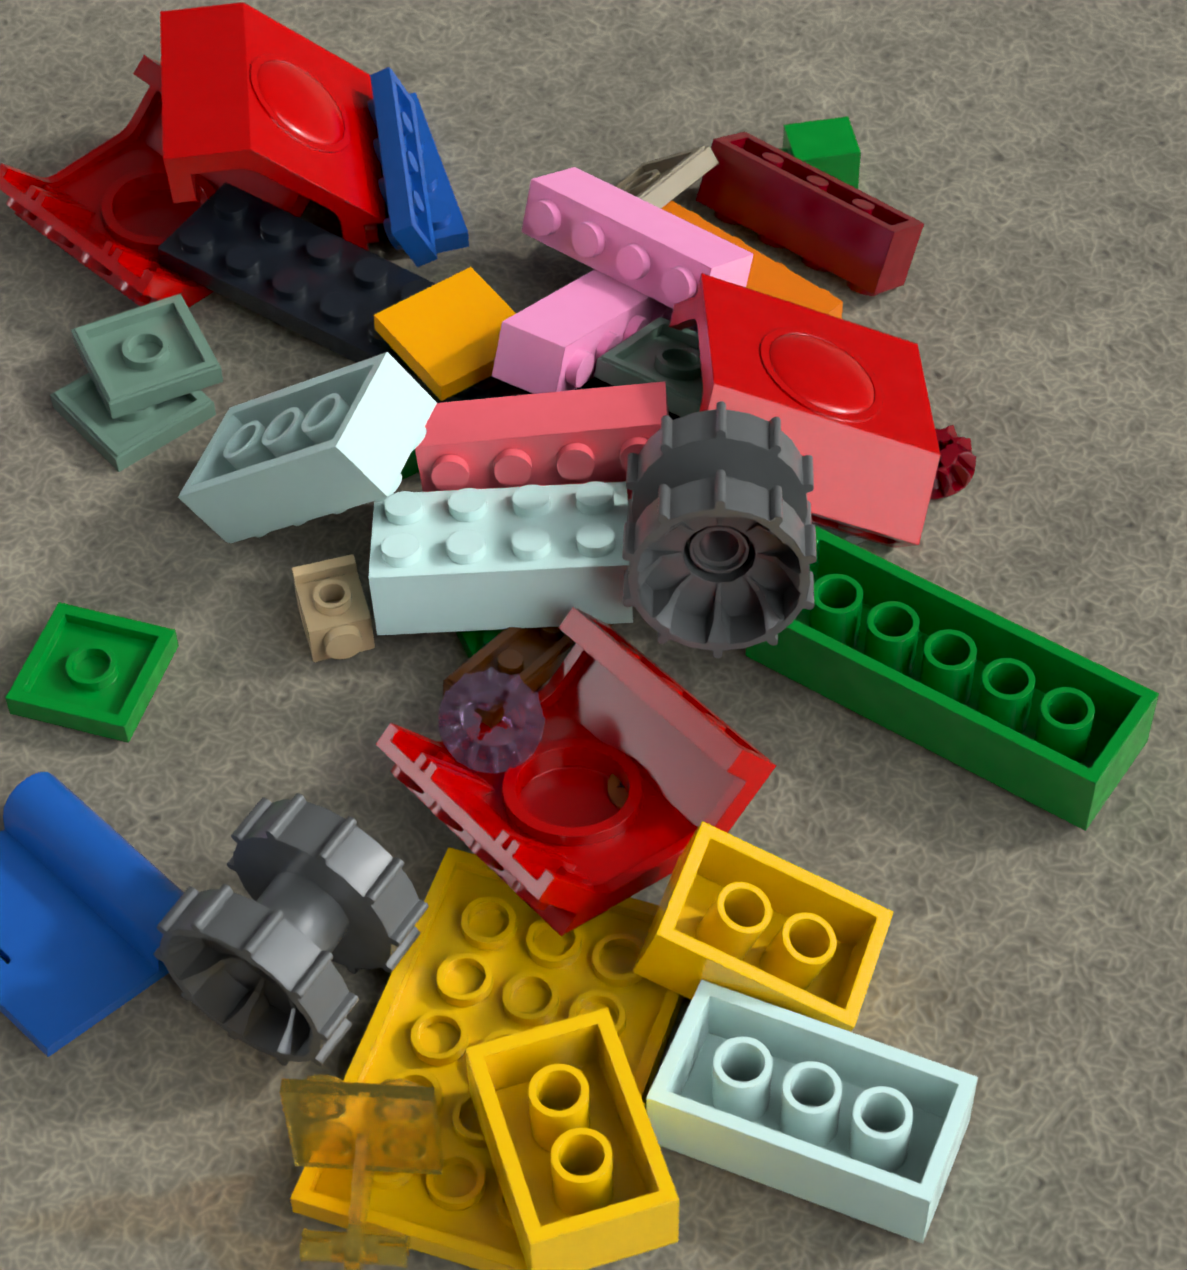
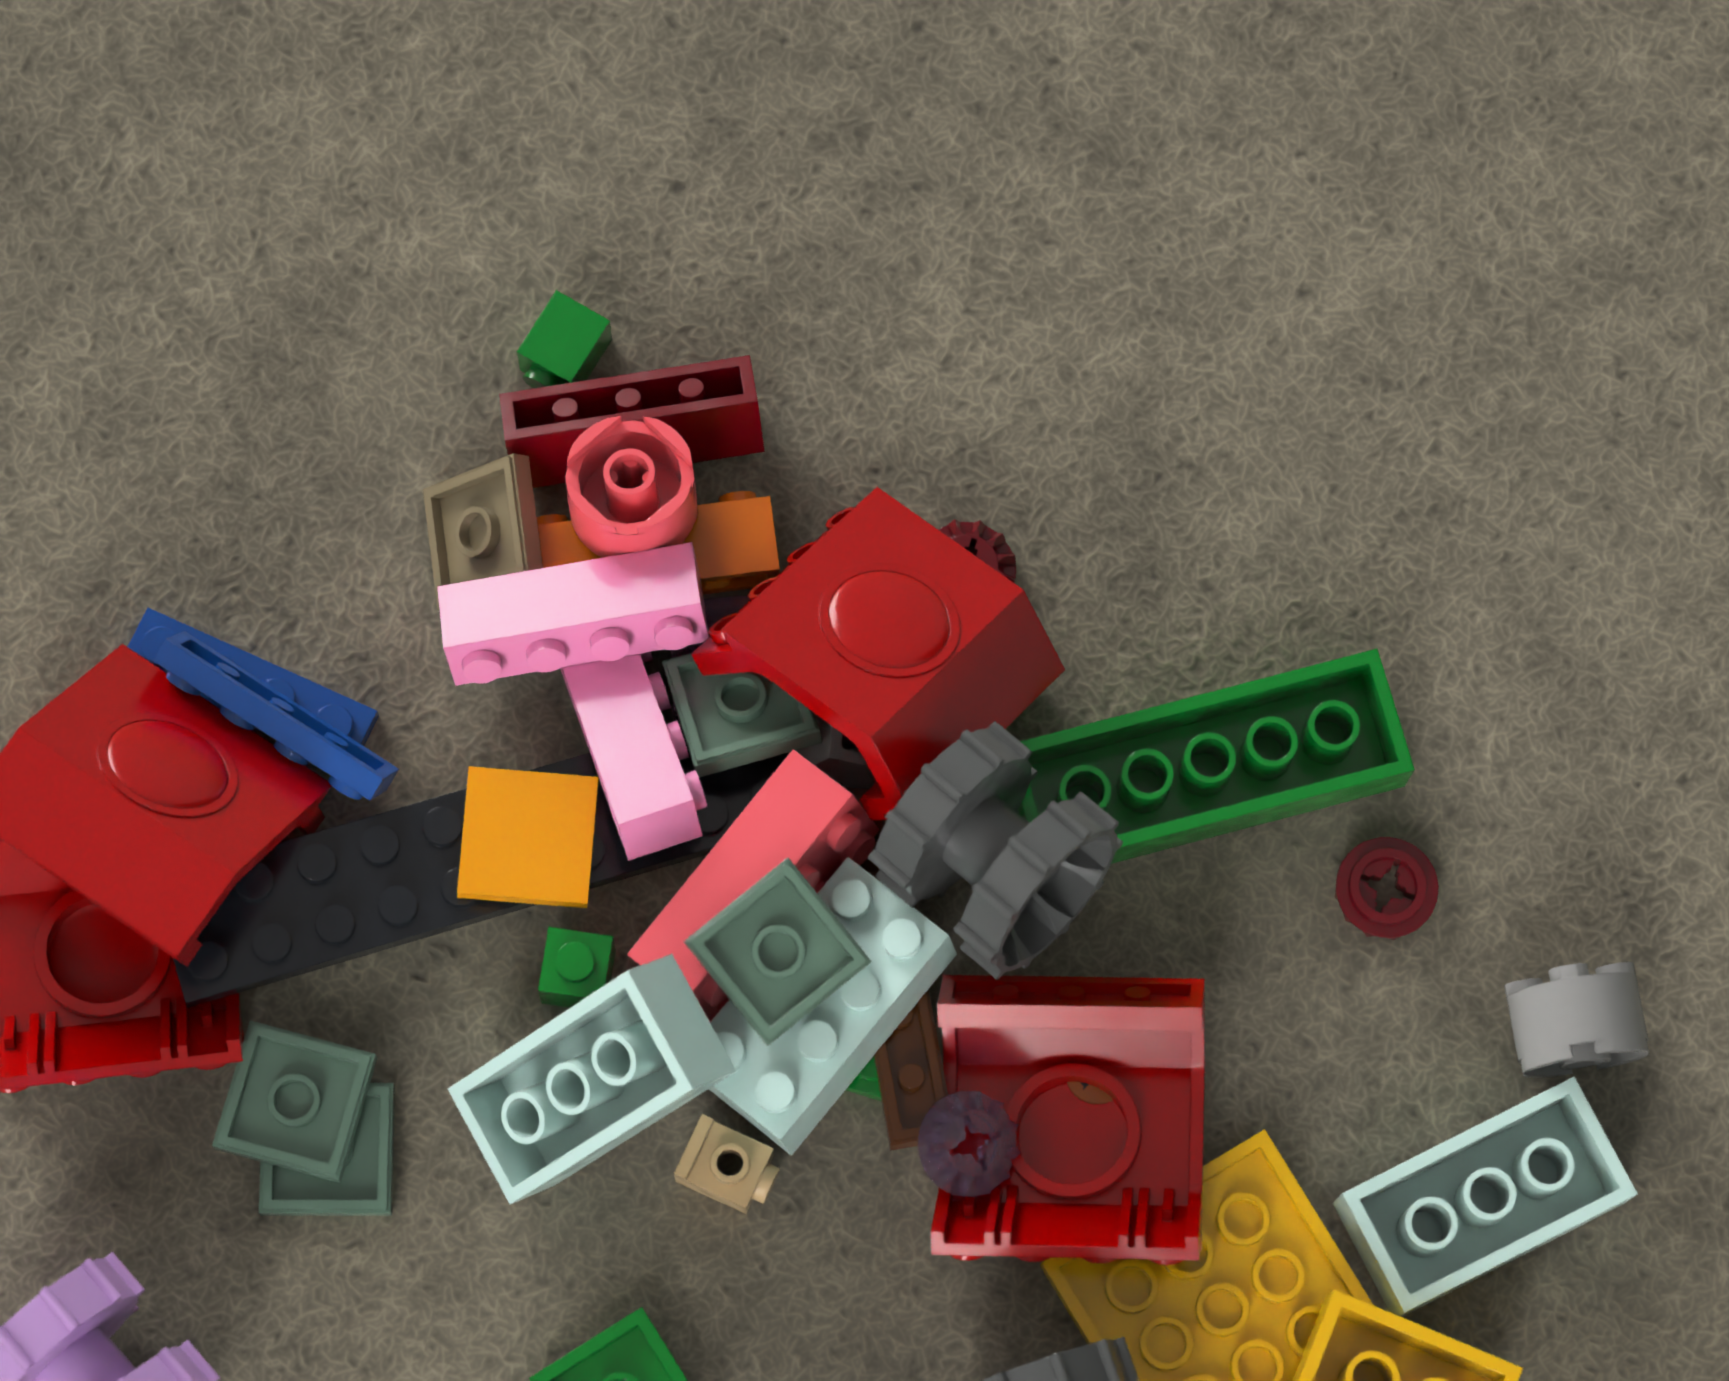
camera: 55 degrees left, 25 degrees up
(504, 465) = (777, 951): none -> sand green tile
(756, 203) = (630, 486): none -> coral brick
(763, 931) = (1337, 1117): yellow brick -> none
(1005, 853) = (1413, 876): none -> dark red gear
(1034, 1060) = (1577, 1019): none -> light grey brick

